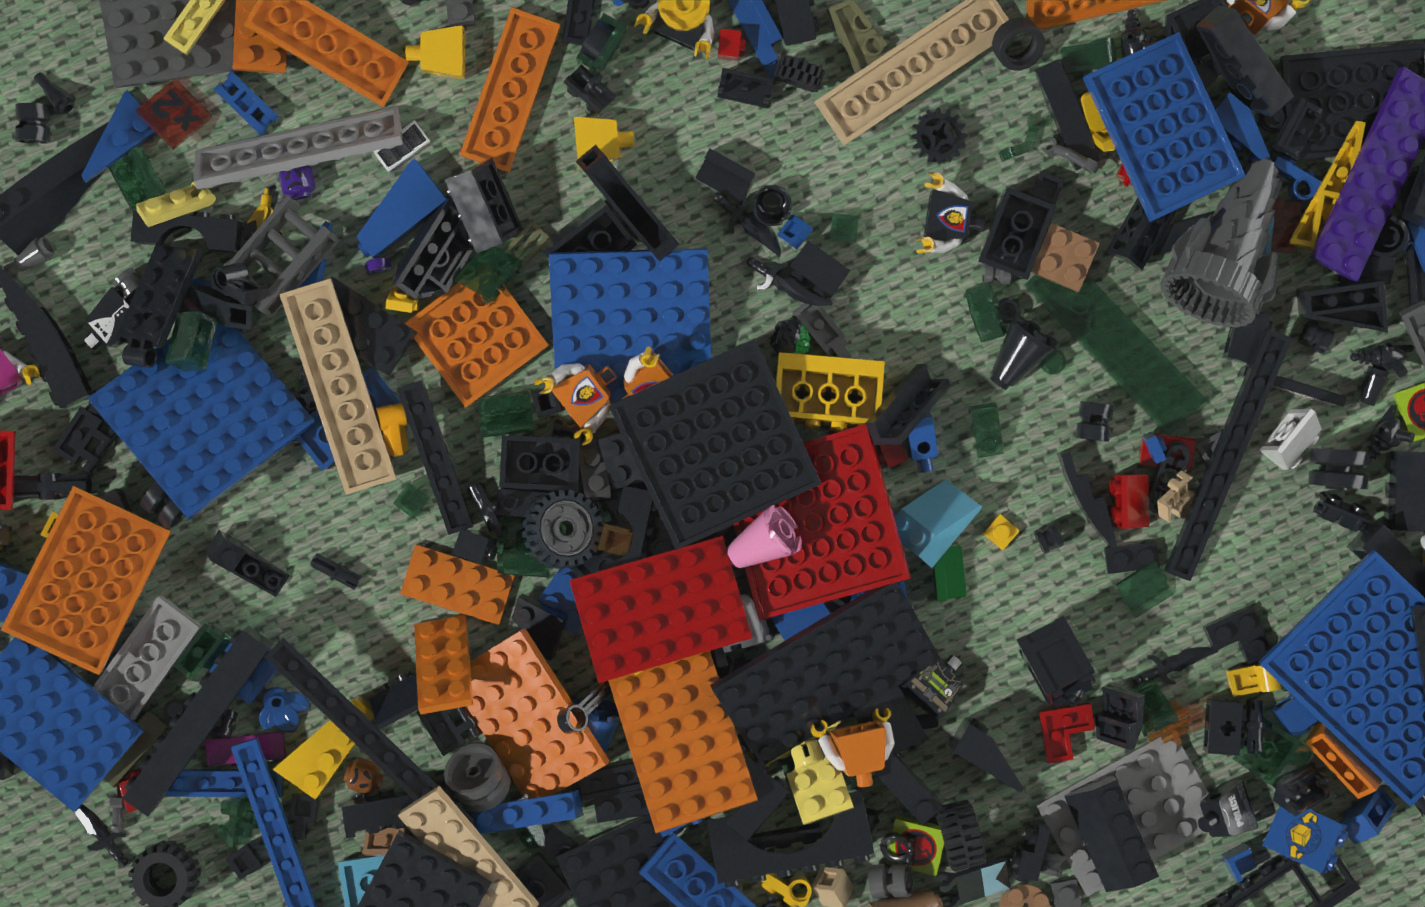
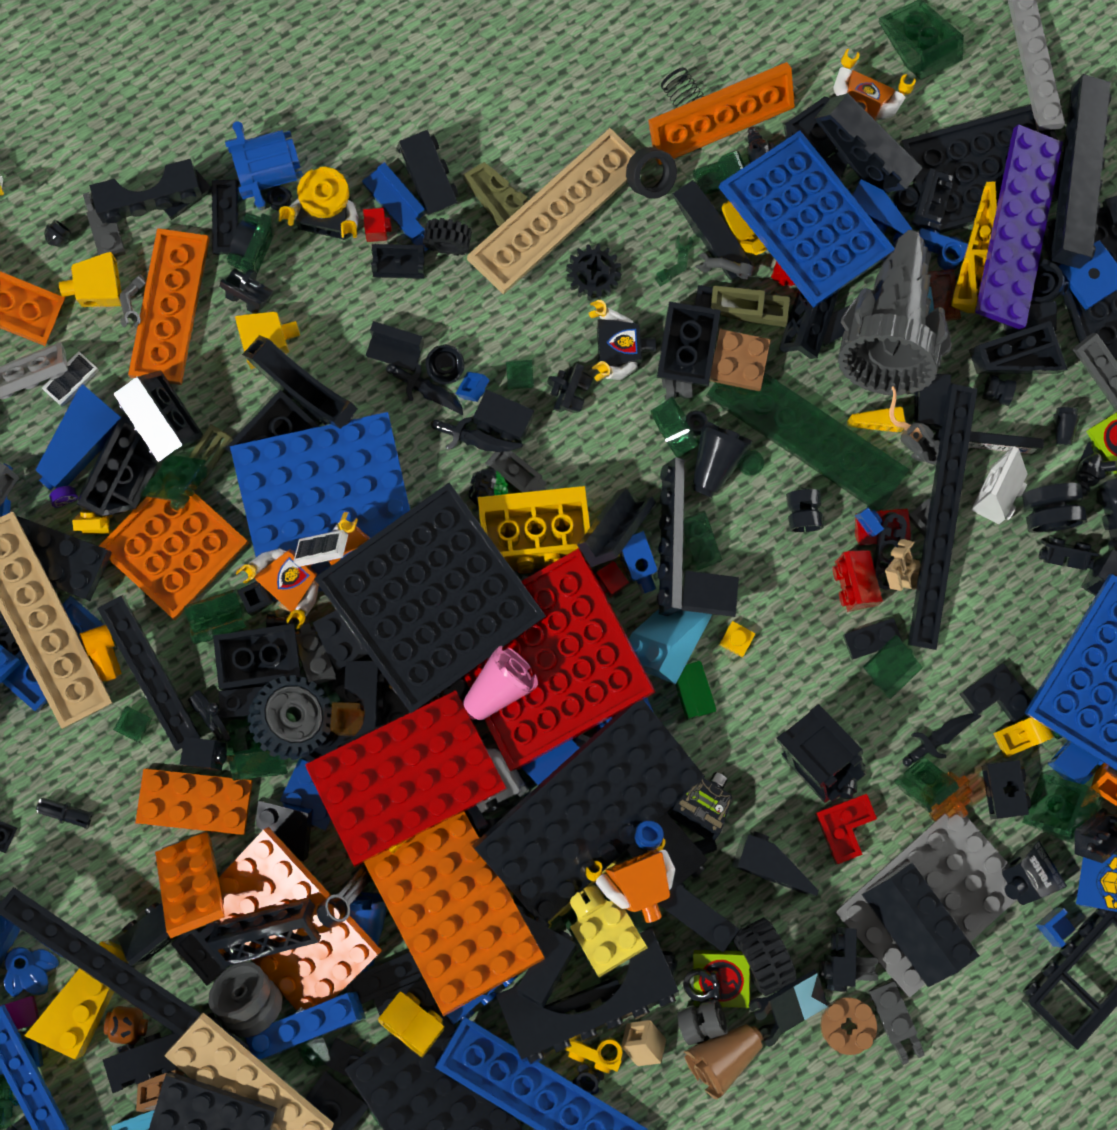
camera: 15 degrees left, 10 degrees down
(303, 810) = (66, 1076): black plate -> none
(468, 78) = (134, 287): none -> dark grey arm
(501, 718) = (258, 928): none -> black fence
(619, 375) = (320, 548): none -> tile
(624, 829) = (411, 1023): none -> yellow brick
(876, 706) = (649, 835): none -> blue tile
(886, 251) = (574, 379): none -> black hips
(959, 422) = (671, 541): none -> black plate
(982, 488) = (709, 593): none -> black slope
(1048, 538) = (786, 634): black wheel -> none
(1087, 202) = (751, 305): none -> olive slope
(1093, 508) = (822, 596): black slope -> none
(1121, 718) = (900, 799): black slope -> none
(1197, 345) = (877, 420): none -> yellow slope
(1221, 371) = (916, 437): none -> dark grey animal
(1255, 726) = (1037, 783): black pin -> none
(1385, 357) = (1070, 396): black piece -> none

